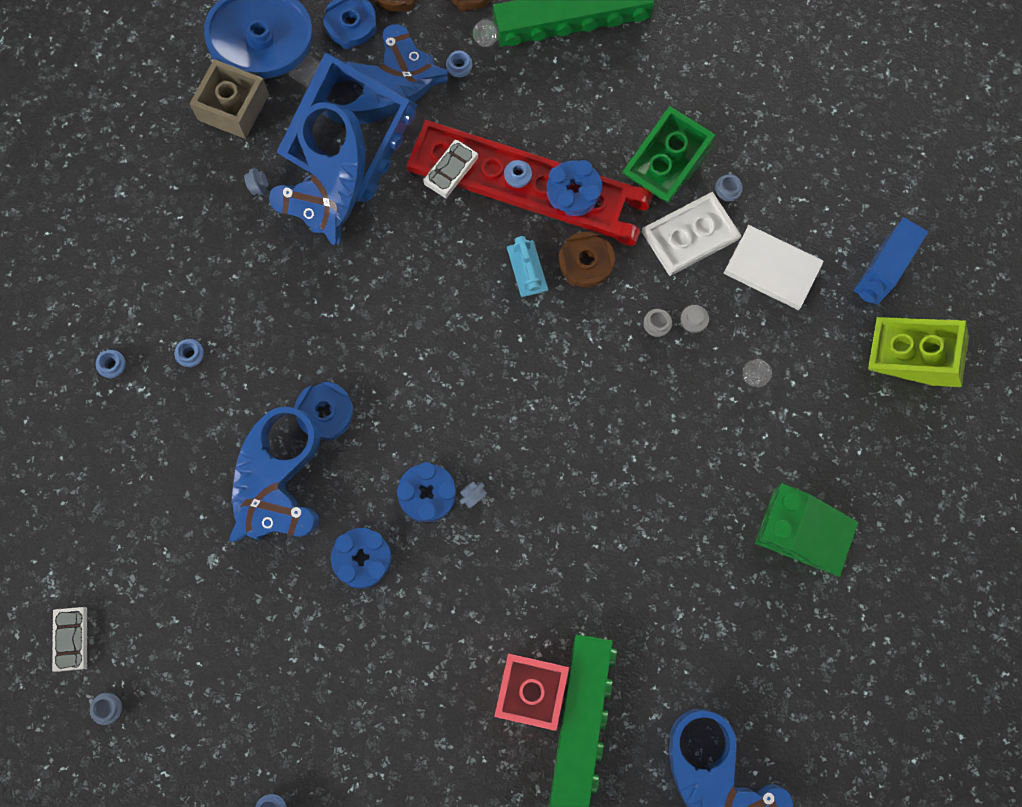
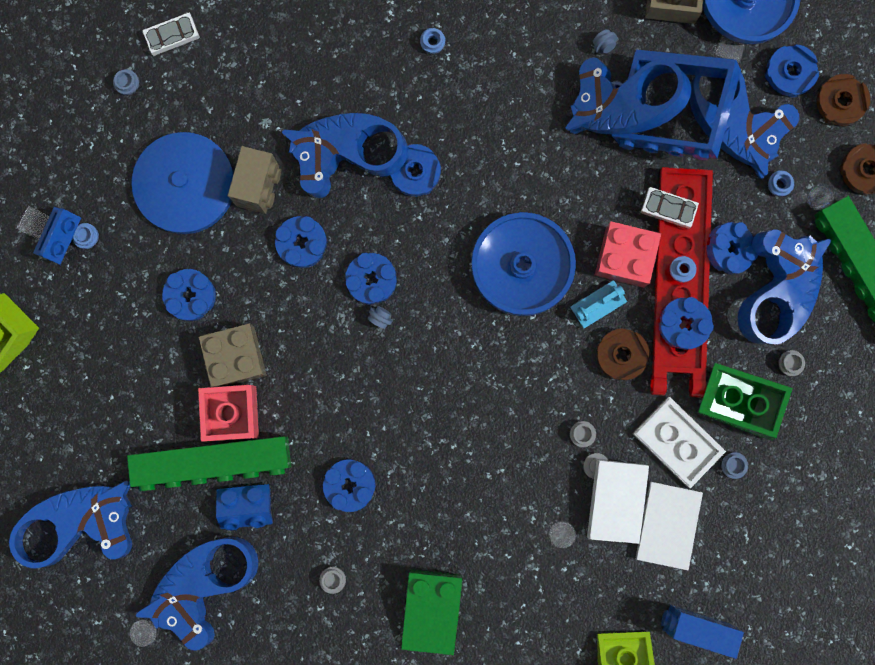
camera: 75 degrees right, 10 degrees up
(248, 674) = (182, 183): none -> blue dish
(270, 583) = (254, 180): none -> dark tan brick
(363, 712) = (198, 305): none -> blue plate
(463, 327) = (523, 264): none -> blue dish
(467, 670) = (232, 356): none -> dark tan brick
(485, 223) = (628, 254): none -> coral brick
(499, 118) = (718, 251): none -> blue plate
(568, 82) = (795, 285): none -> blue animal
(635, 594) = (340, 498): none -> blue plate
(641, 106) = (791, 363): none -> light grey plate
(641, 707) = (243, 507): none -> blue bracket
(737, 307) = (617, 501): none -> white tile
(747, 629) = (332, 580): none -> light grey plate

